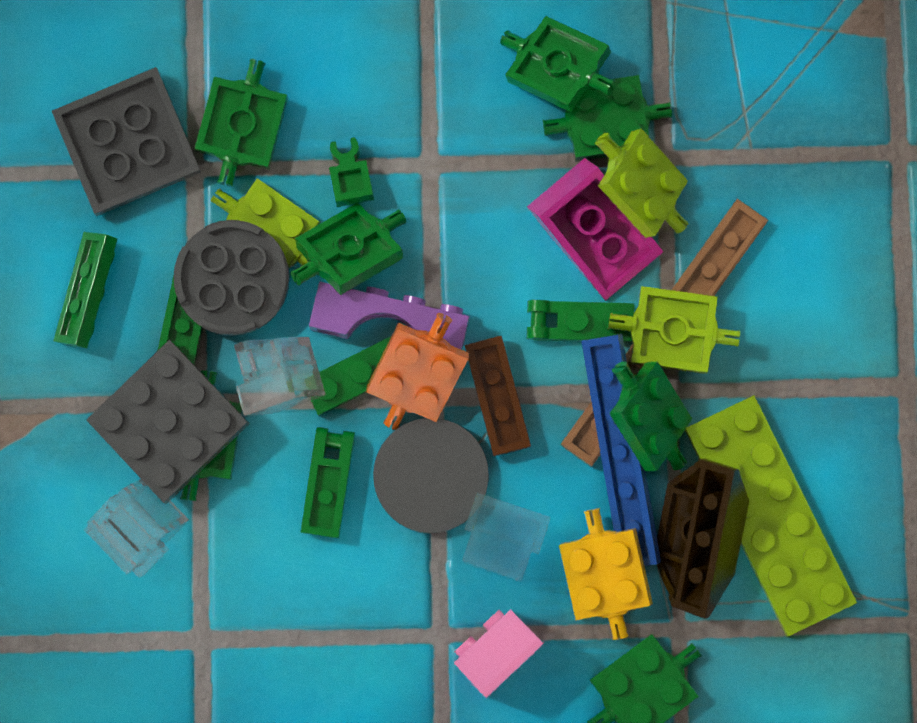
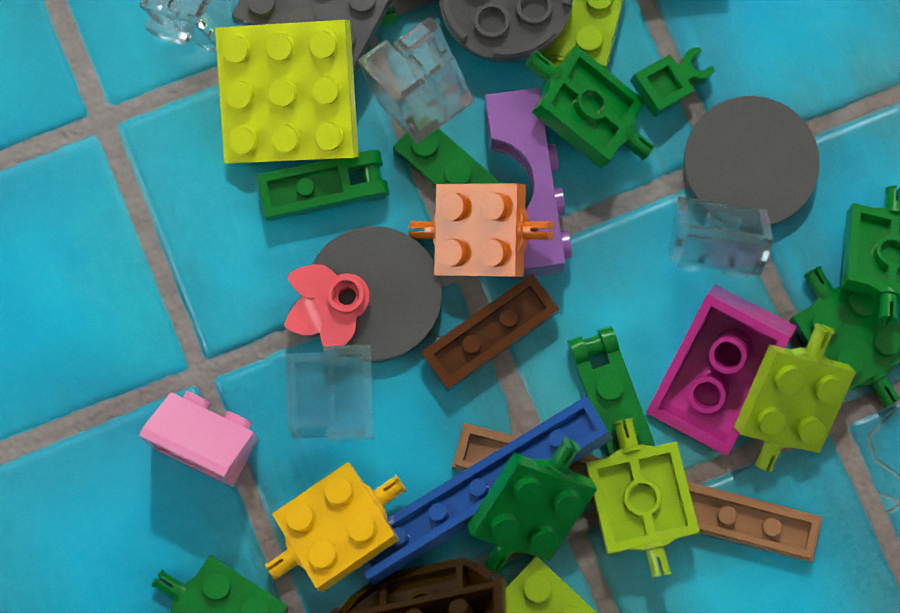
camera: 65 degrees right, 5 degrees down
(244, 482) = (287, 91): none -> neon yellow plate
(428, 521) = (320, 305): none -> coral plate
(439, 139) = (753, 157): none -> dark grey tile
(493, 187) = (720, 237): none -> clear light blue slope

